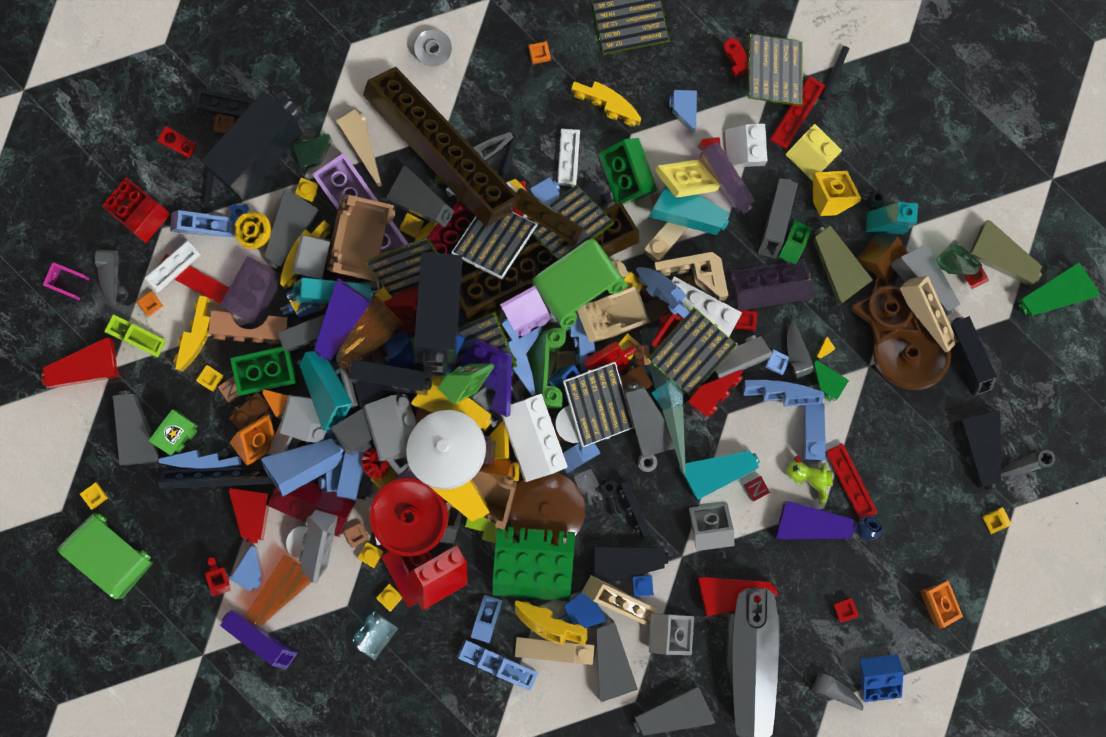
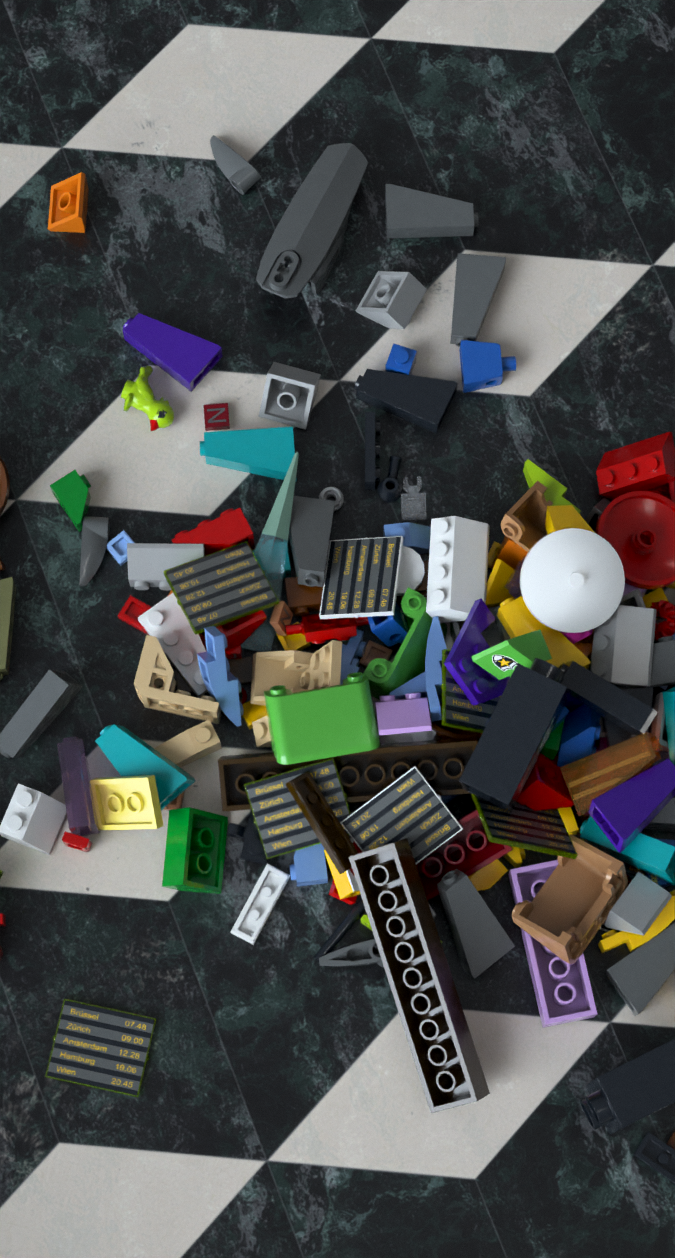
camera: 155 degrees left, 10 degrees down
(307, 190) = (610, 1006): yellow plate -> none
(312, 152) = (585, 1050): clear green slope -> none
(357, 133) = (516, 1048): tan slope -> none
(411, 225) = (497, 900): yellow plate -> none
(429, 39) = (371, 1106): light grey dish -> none
(486, 618) = (597, 403): medium blue slope -> none
(497, 665) = (606, 350): medium blue slope -> none
(533, 566) = (517, 433): green slope -> none
(539, 52) = (236, 1056): orange tile -> none
(542, 622) = (537, 370): yellow slope -> none
(547, 650) = (531, 335): tan slope -> none
(548, 504) = (474, 487): reddish brown dish -> none
(614, 103) = (172, 943): yellow slope -> none
(618, 600) = (440, 356): tan slope -> none
(685, 107) = (85, 900): medium blue slope -> none
(721, 594) = (307, 315): red slope -> none
(771, 284) = (84, 639): clear purple slope -> none
(789, 393) = (127, 503): medium blue slope -> none
(795, 242) = (29, 674): green slope -> none
(814, 433) = (119, 448): medium blue slope -> none
(825, 348) = (60, 536): yellow slope -> none
(845, 610) = (180, 244): red plate -> none
(850, 481) = (103, 379): red tile -> none
(869, 528) = (109, 316): dark blue cone -> none
(881, 678) = (176, 157): blue slope -> none

